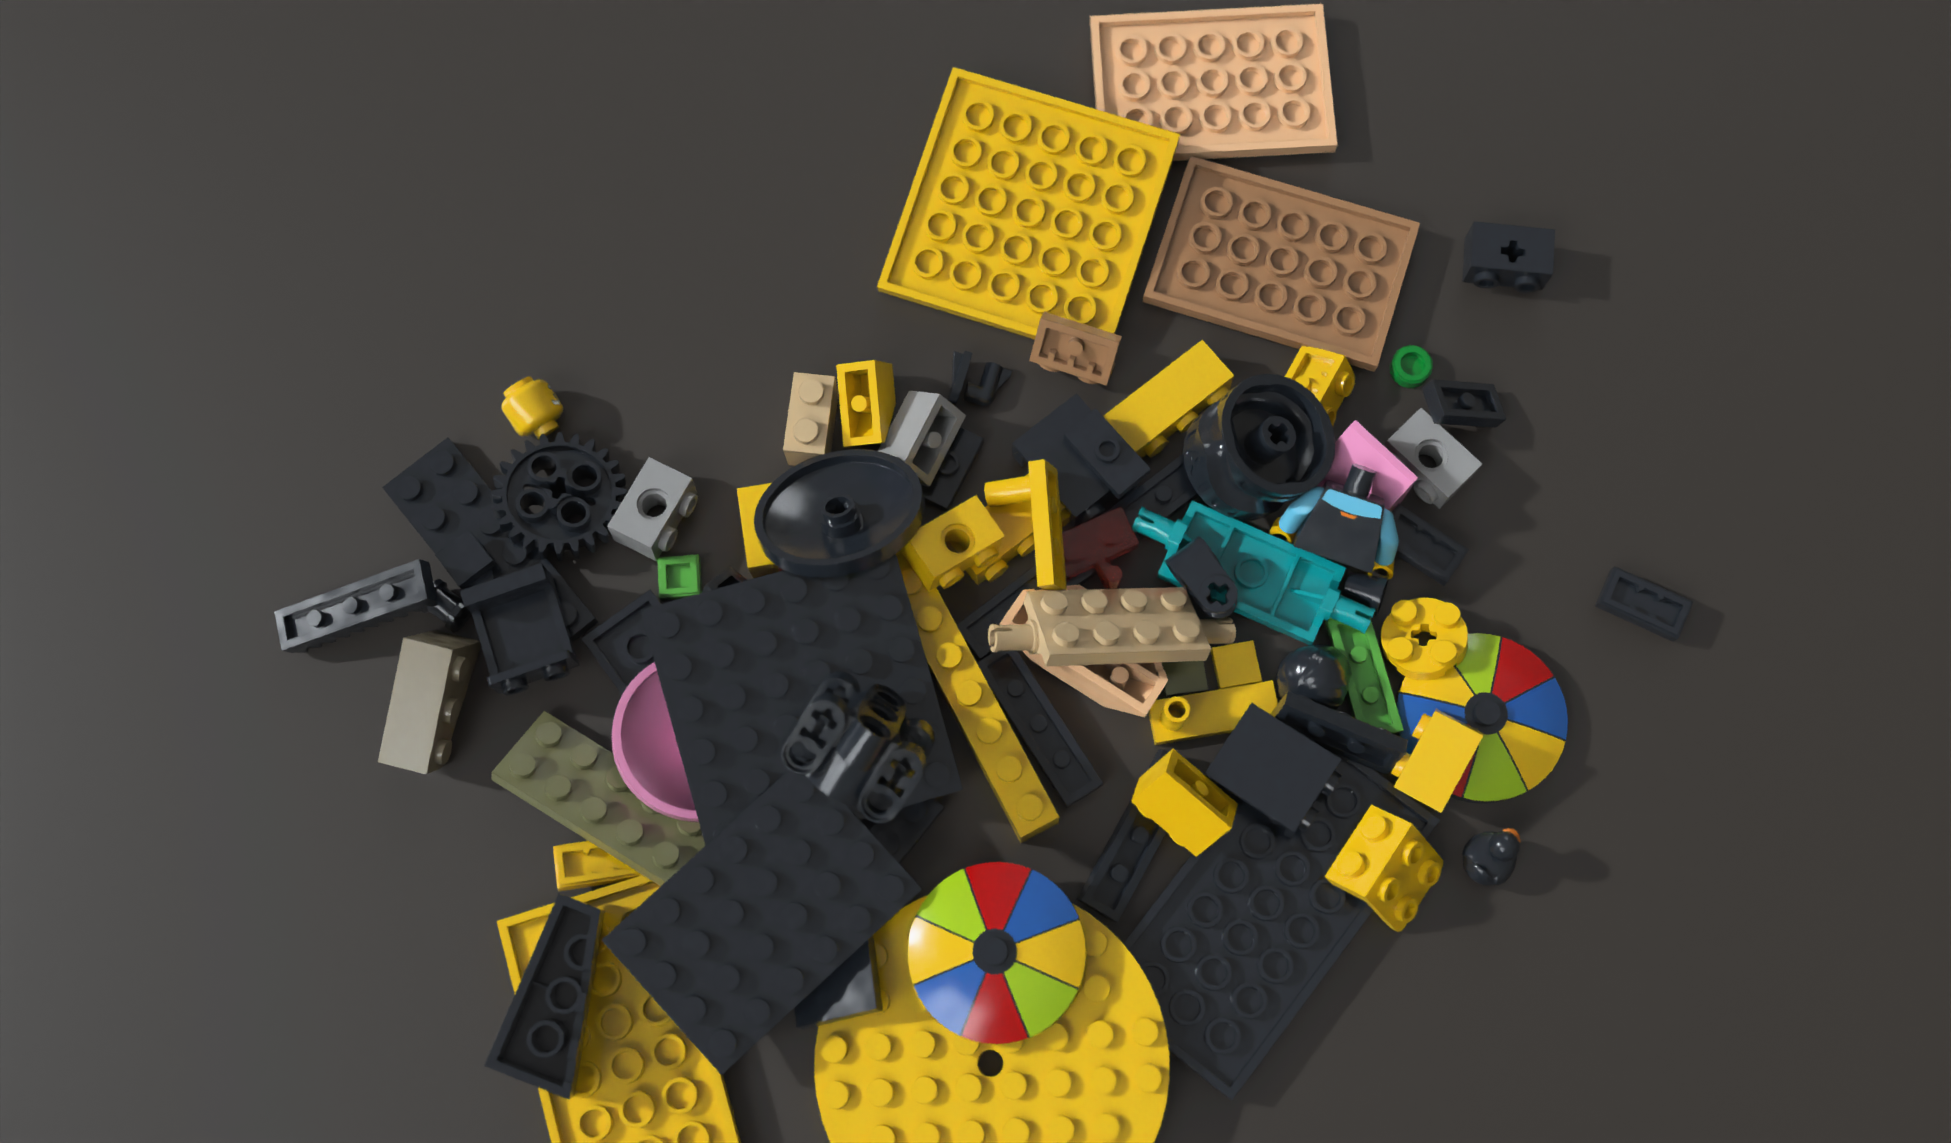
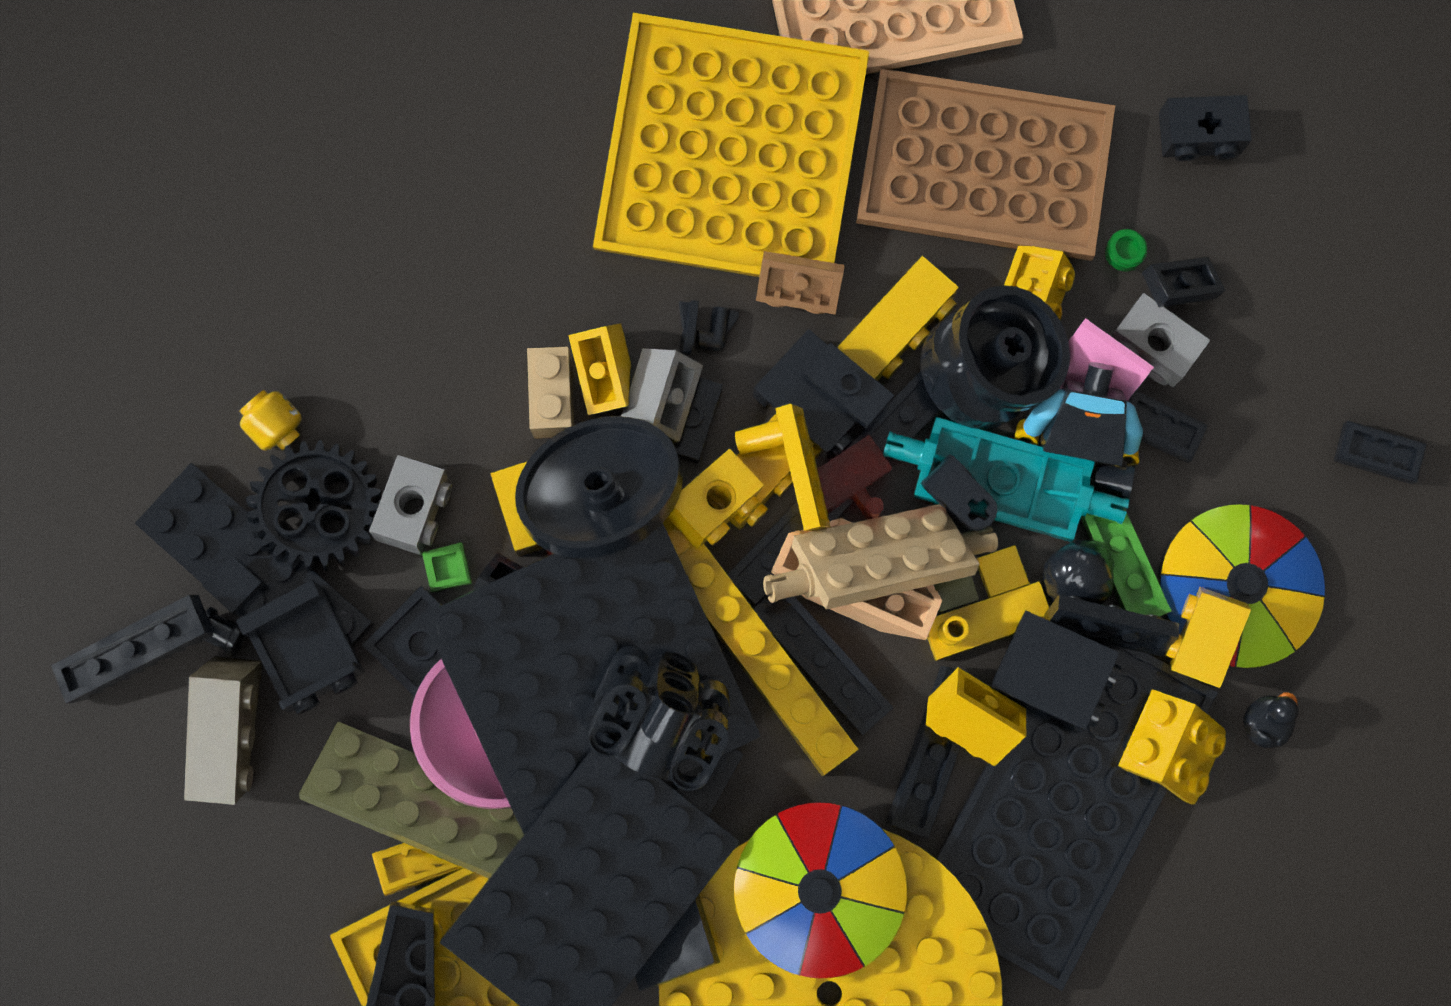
camera: 15 degrees left, 5 degrees up
(1418, 616) = (1178, 495): yellow plate -> none

